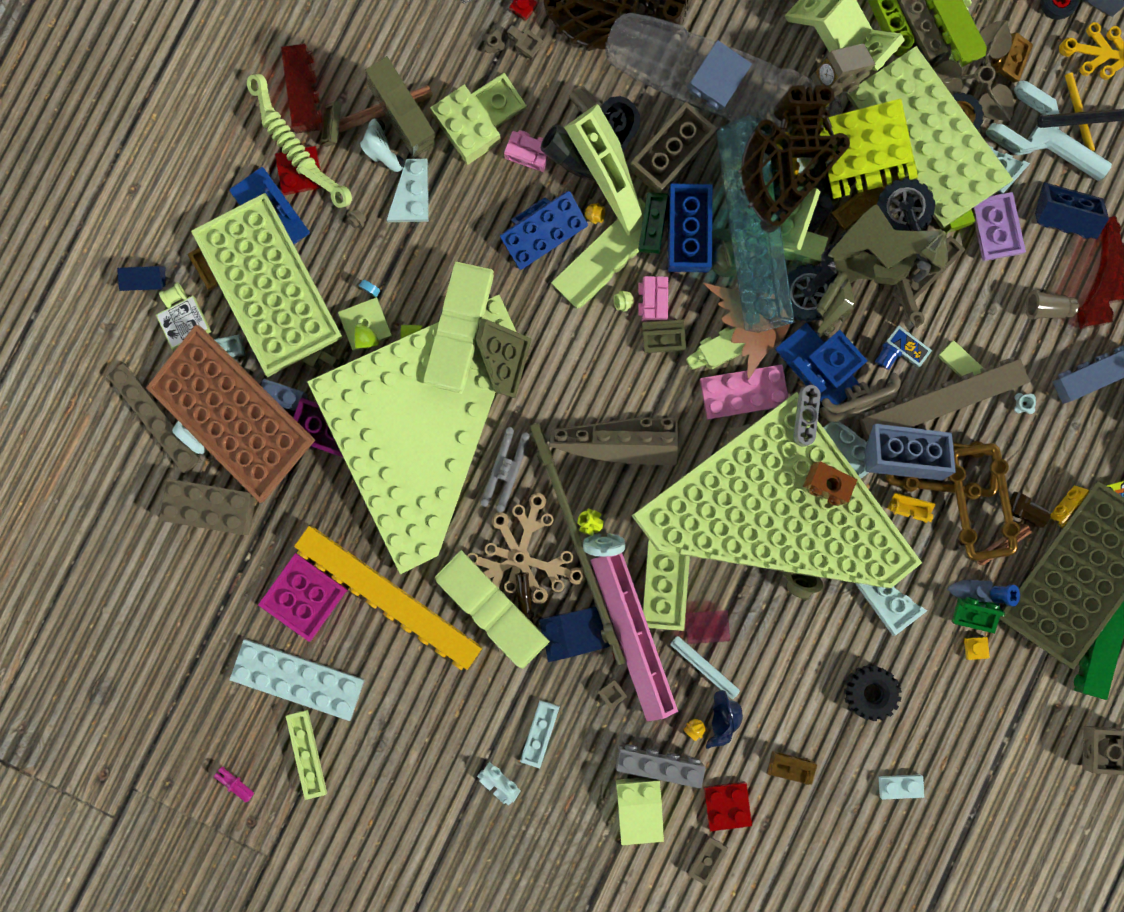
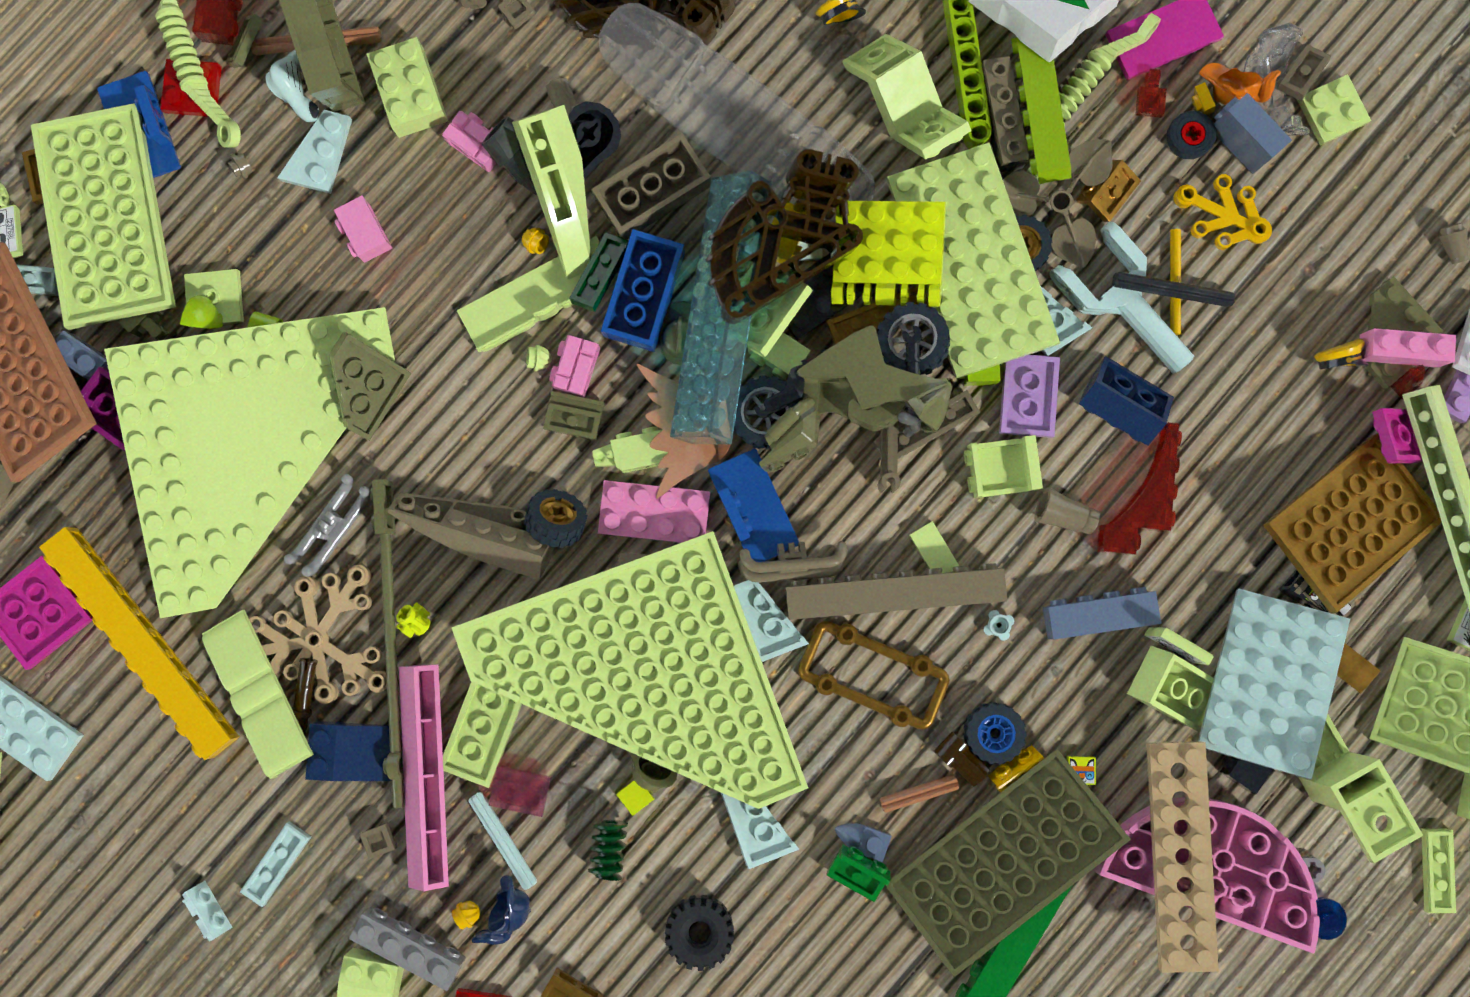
camera: 20 degrees right, 0 degrees up
(369, 288) = (230, 255): medium azure tile -> none
(458, 327) = (314, 333): yellowish green piece -> none
(463, 241) = (362, 229): none -> bright pink brick
(499, 100) = (459, 69): yellowish green tile -> none
(543, 228) = (464, 241): blue bracket -> none
(604, 546) = (418, 654): light aqua tile -> none
(676, 415) = (555, 518): none -> black wheel
(718, 76) = (730, 112): sand blue brick -> none
(786, 651) = (608, 850): none -> dark green piece
(793, 606) = (634, 797): none -> neon yellow tile
(814, 410) = (715, 543): light grey beam -> none
(837, 359) = (777, 504): blue plate -> none
(841, 483) = (731, 662): dark orange brick -> none
(844, 69) = (885, 146): dark tan brick -> none
(887, 356) = (843, 518): blue bush -> none
(908, 506) = (808, 709): yellow hinge -> none
(909, 452) = (831, 646): sand blue slope -> none
(911, 348) = (874, 513): tile -> none
(976, 648) = (848, 913): yellow plate -> none
(995, 285) = (1003, 467): none -> yellowish green panel
(1005, 594) = (902, 858): blue bush -> none
(1010, 528) = (875, 769): pearl gold bar -> none
(1055, 476) = (1009, 728): none -> black wheel

